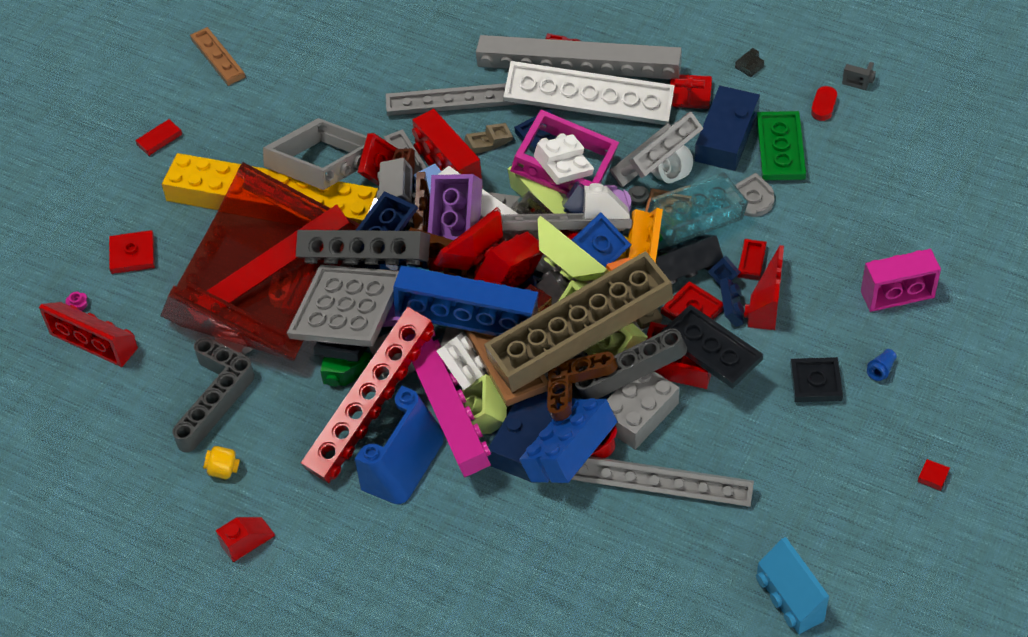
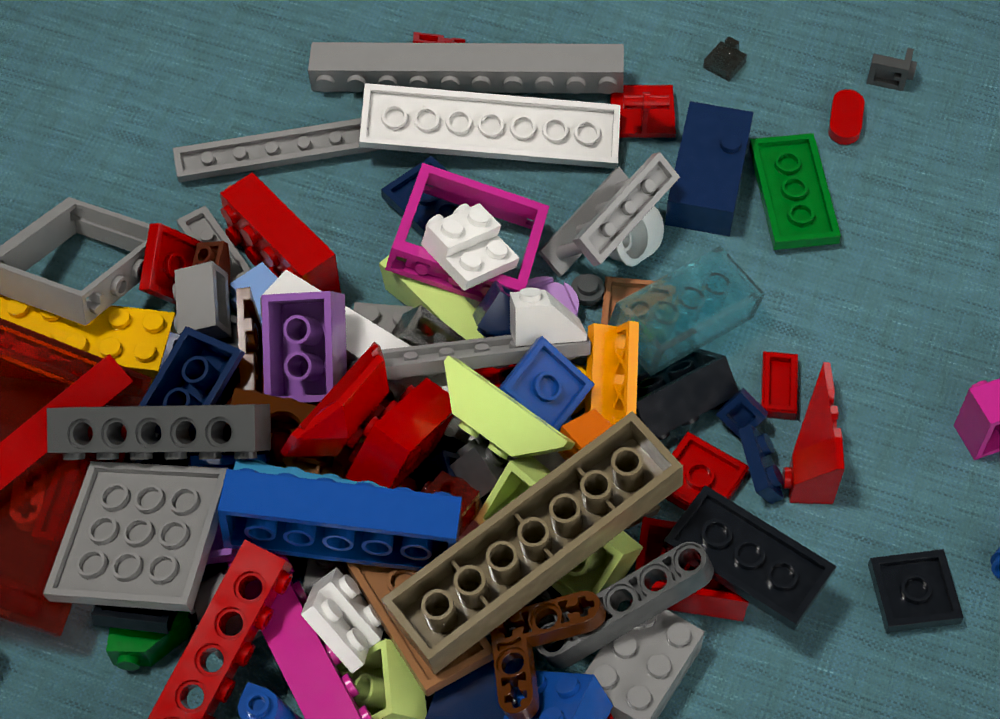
camera: 10 degrees left, 5 degrees up
(493, 137) = (347, 209): dark tan slope -> none
(758, 194) = (771, 273): light grey tile -> none

